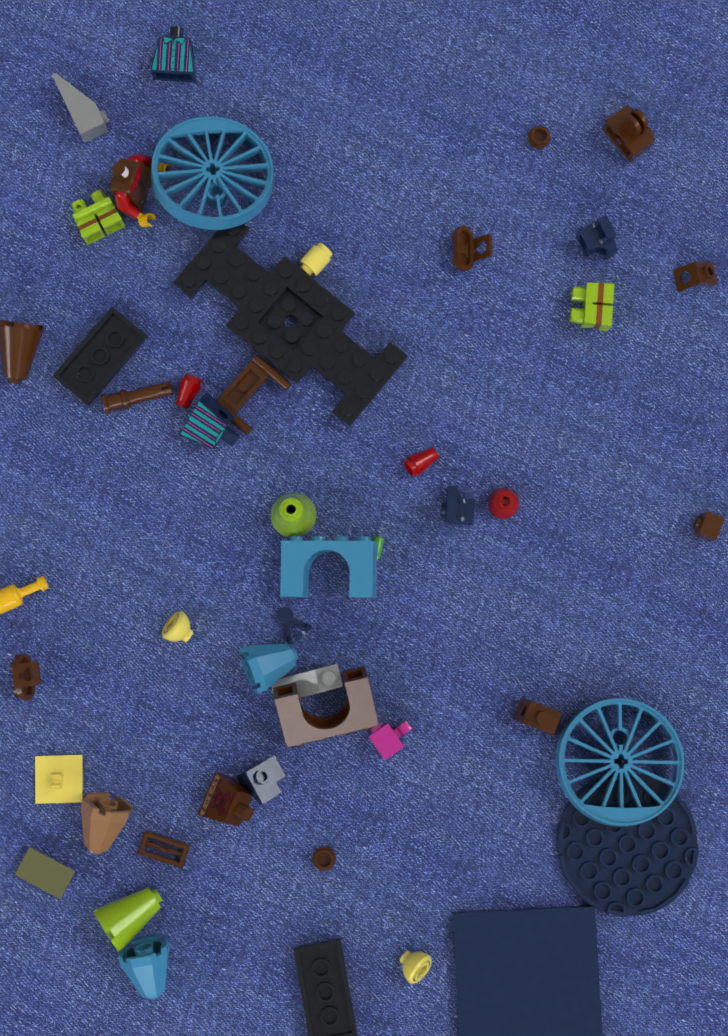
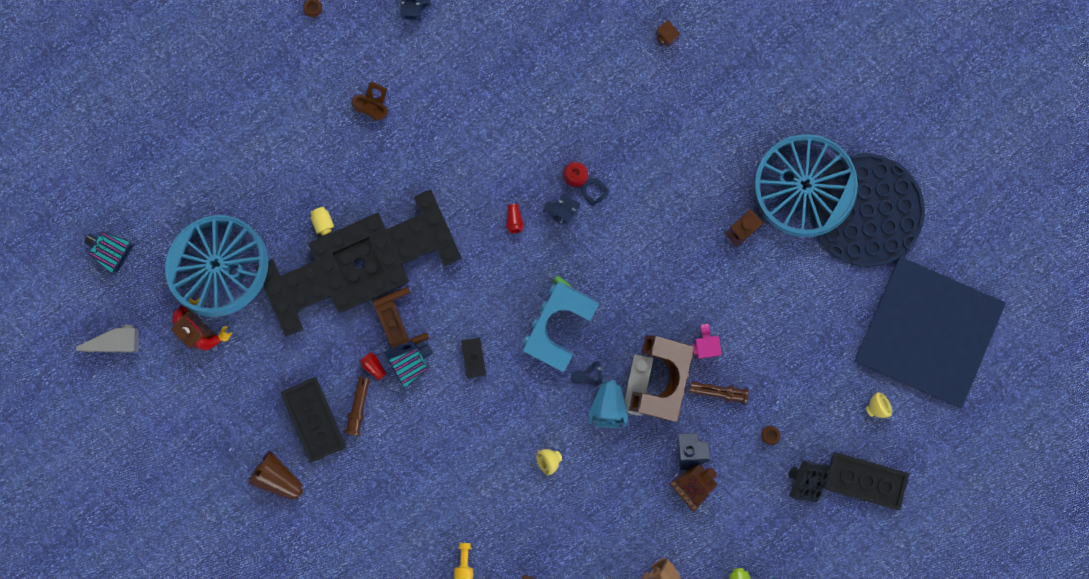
camera: 60 degrees left, 0 degrees up
(87, 217) = (204, 379): lime hips -> none
(168, 840) = (703, 553): reddish brown tile -> none
(249, 492) = (473, 358): none -> black plate
(293, 927) = (808, 480): none -> black plate
(297, 523) = (506, 342): lime cone -> none
(346, 788) = (727, 393): none -> reddish brown pin
(482, 536) = (592, 202): none -> dark blue piece
(596, 305) = (462, 31): lime hips -> none

